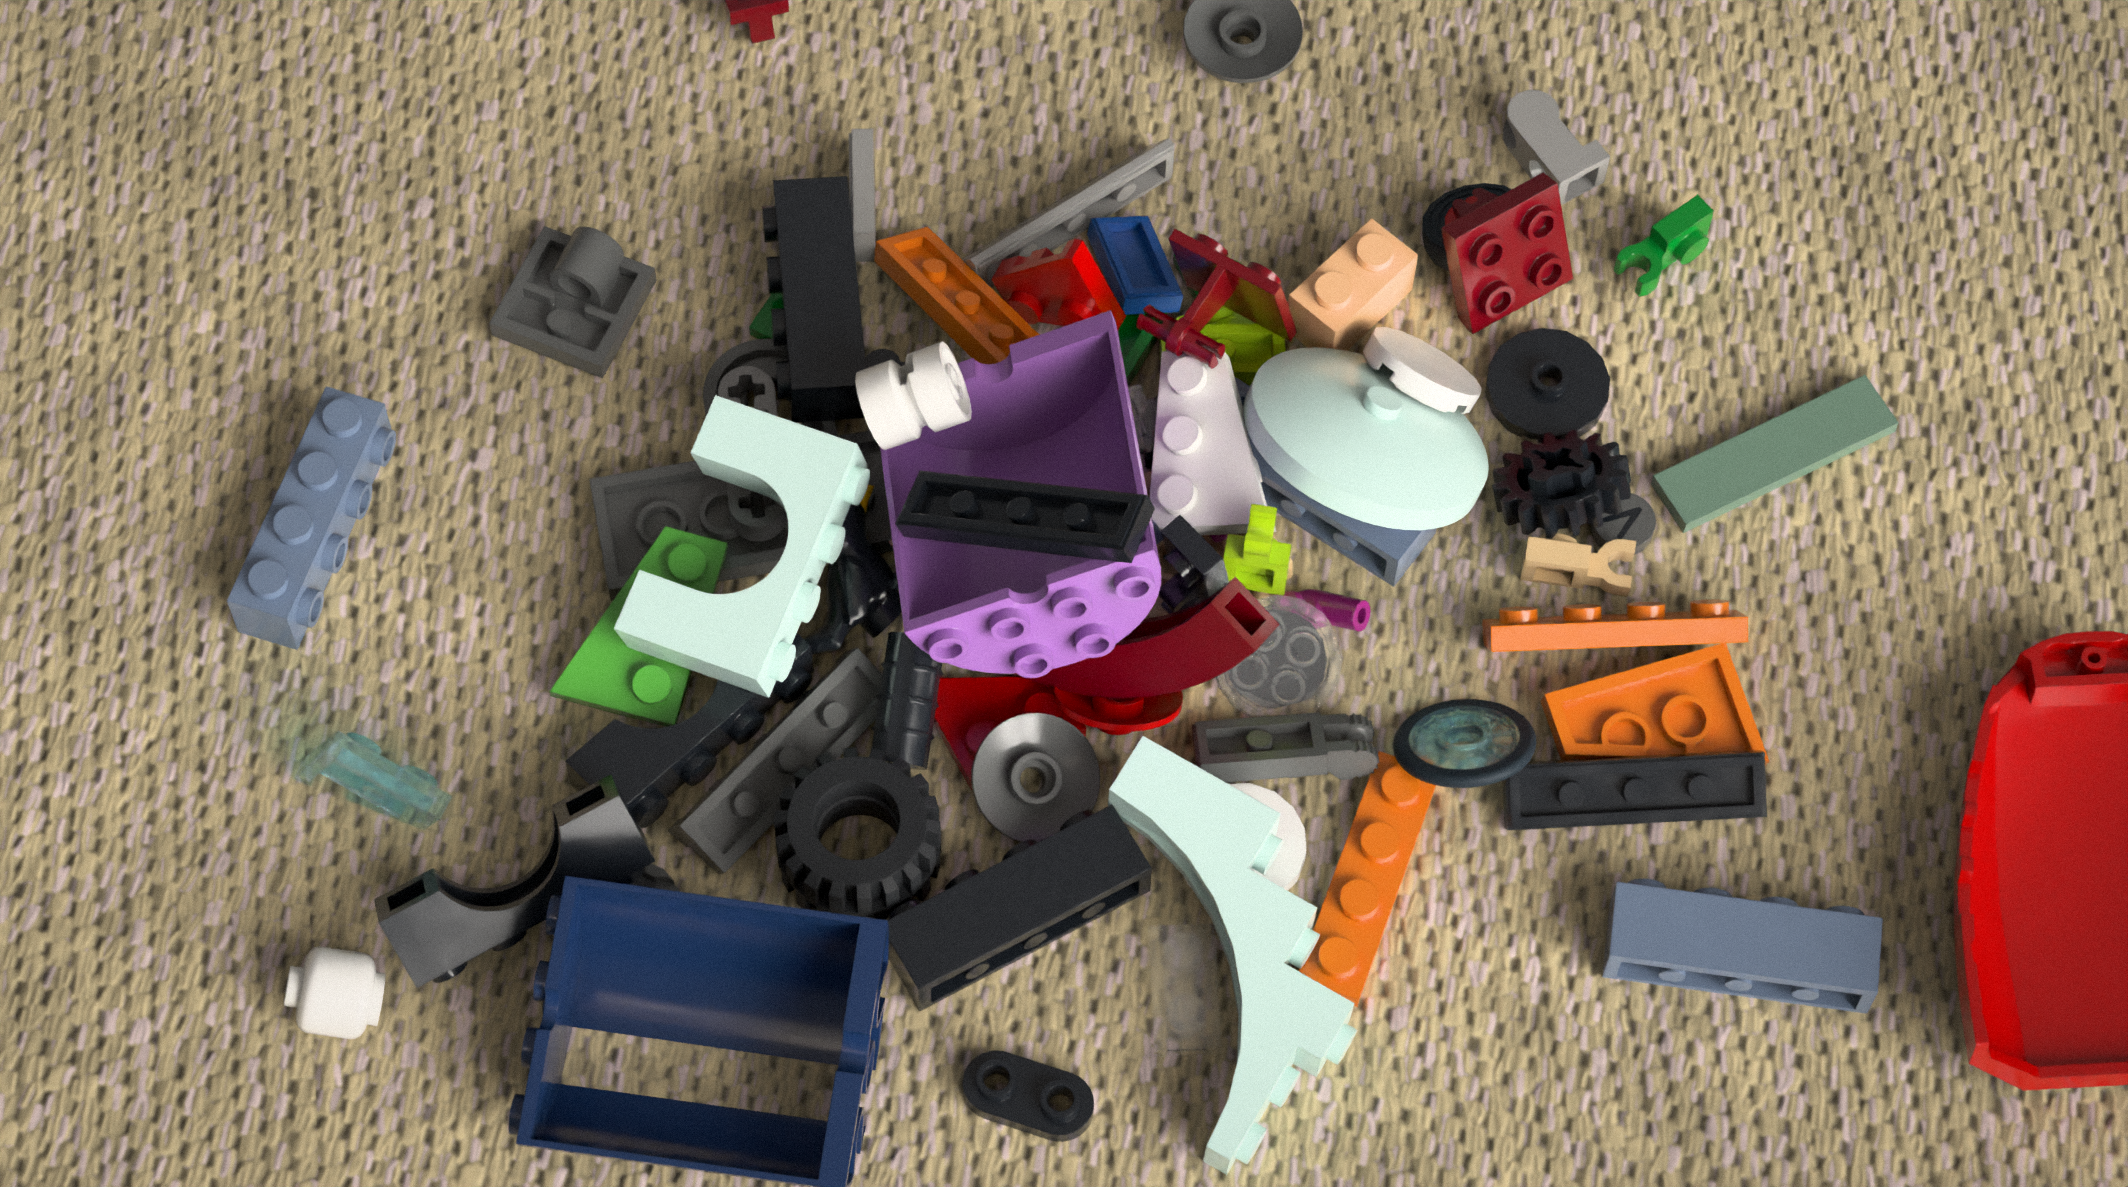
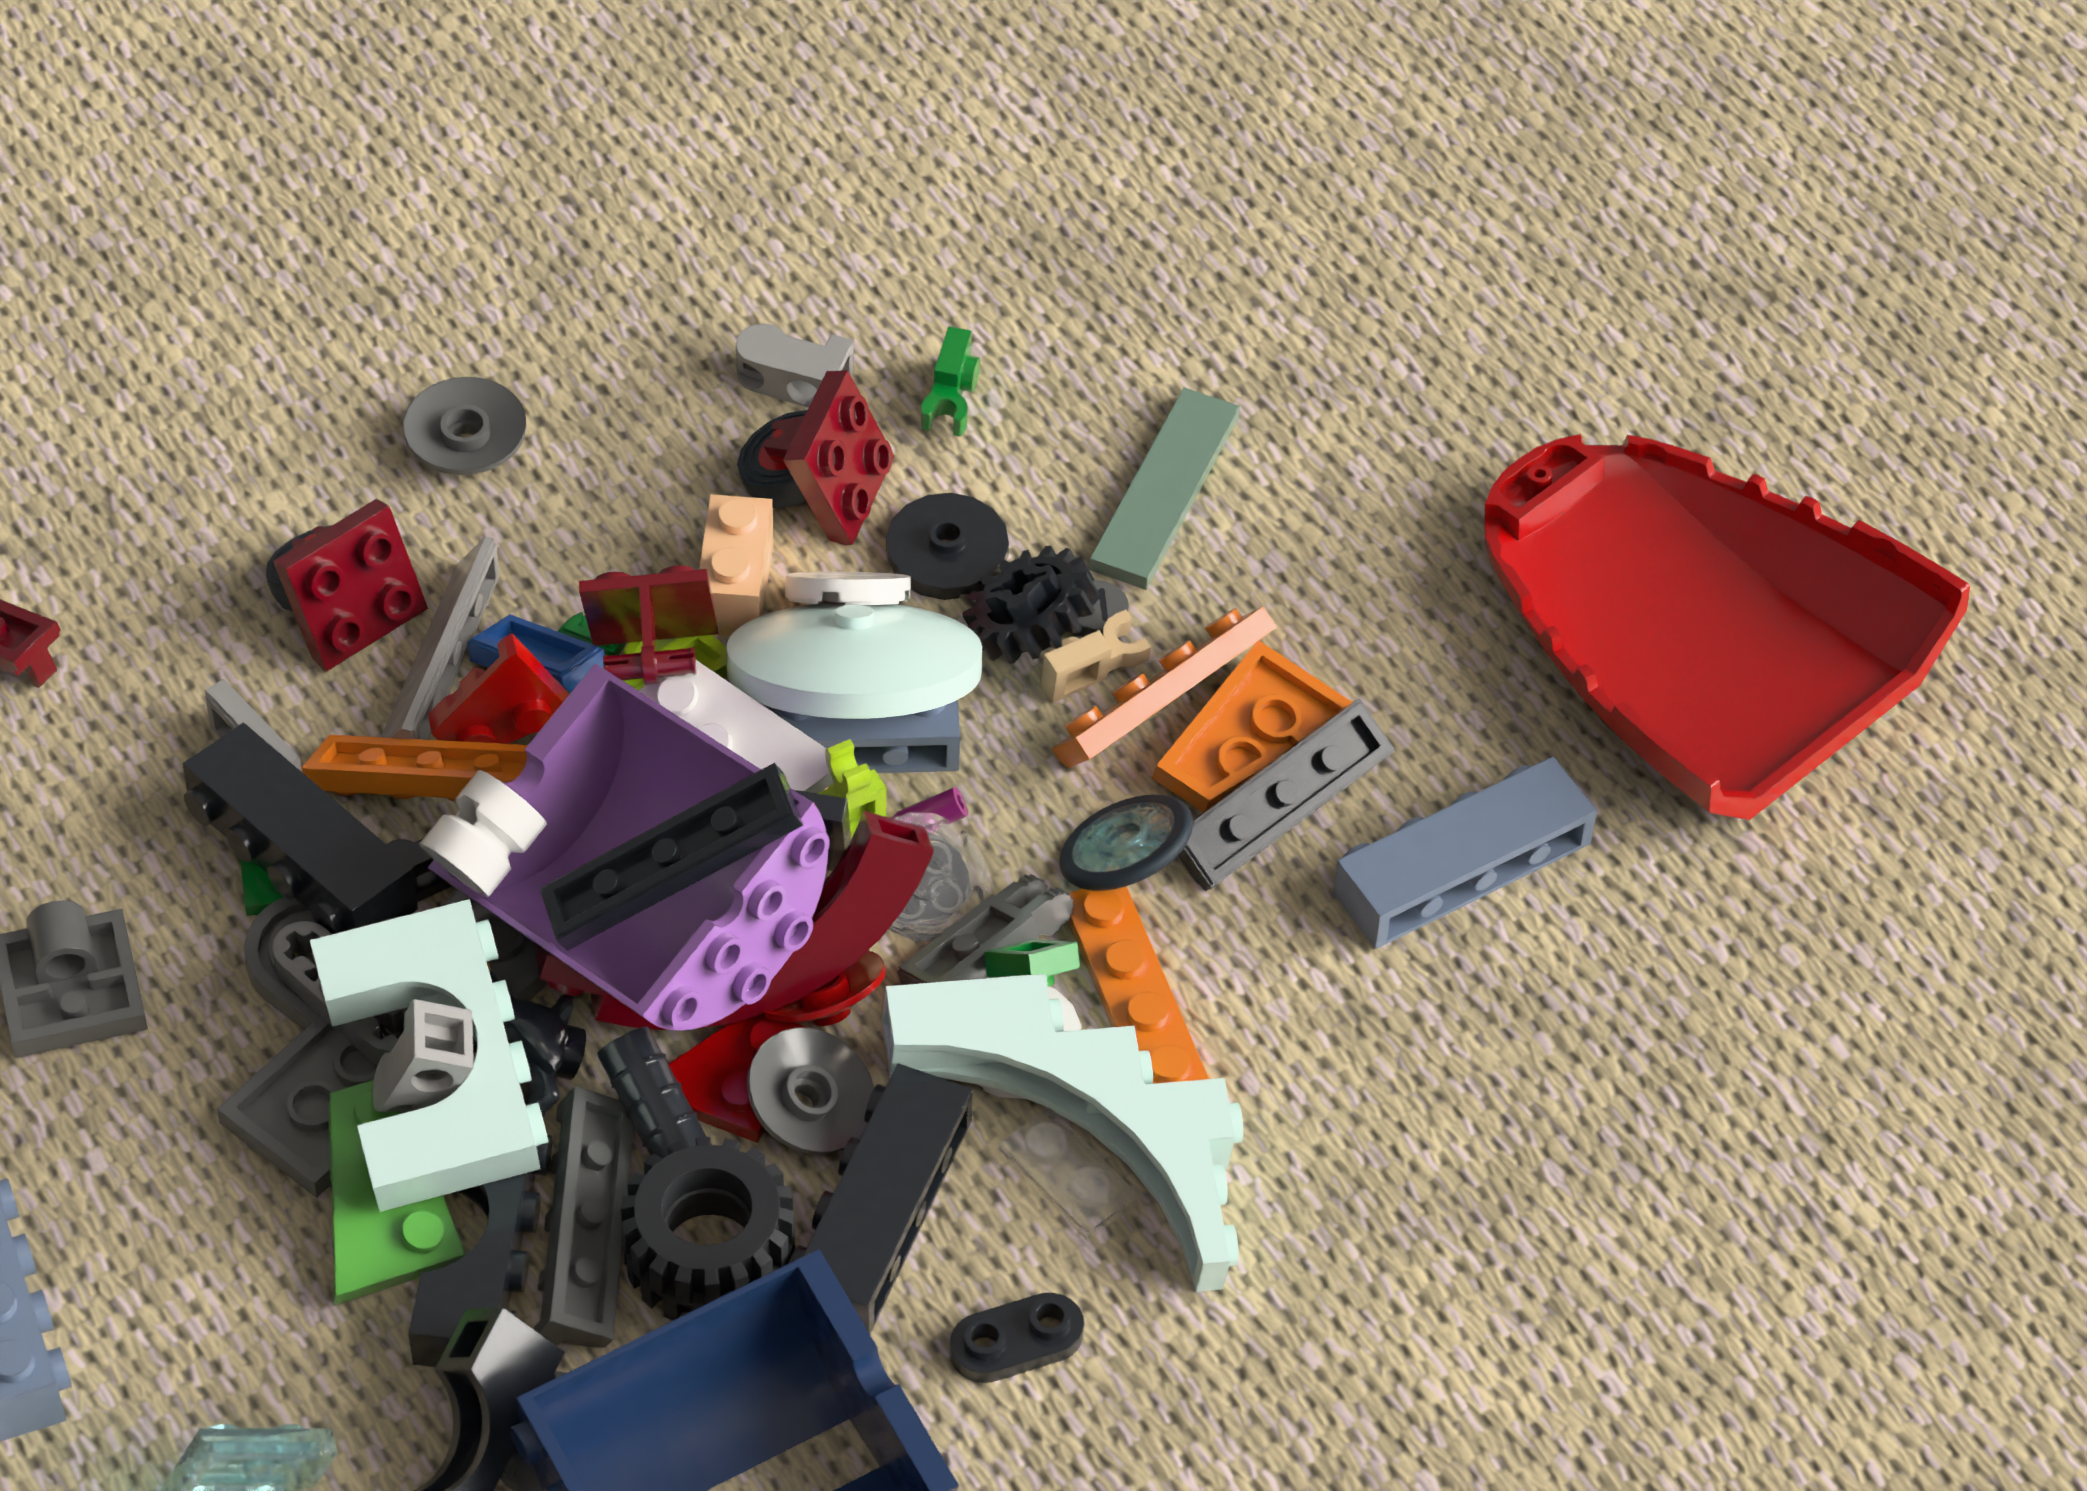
camera: 40 degrees left, 10 degrees down
(733, 550) = (426, 1060): none -> light grey leg
(1032, 109) = (347, 583): none -> dark red plate
(1294, 793) = (1032, 958): none -> green plate

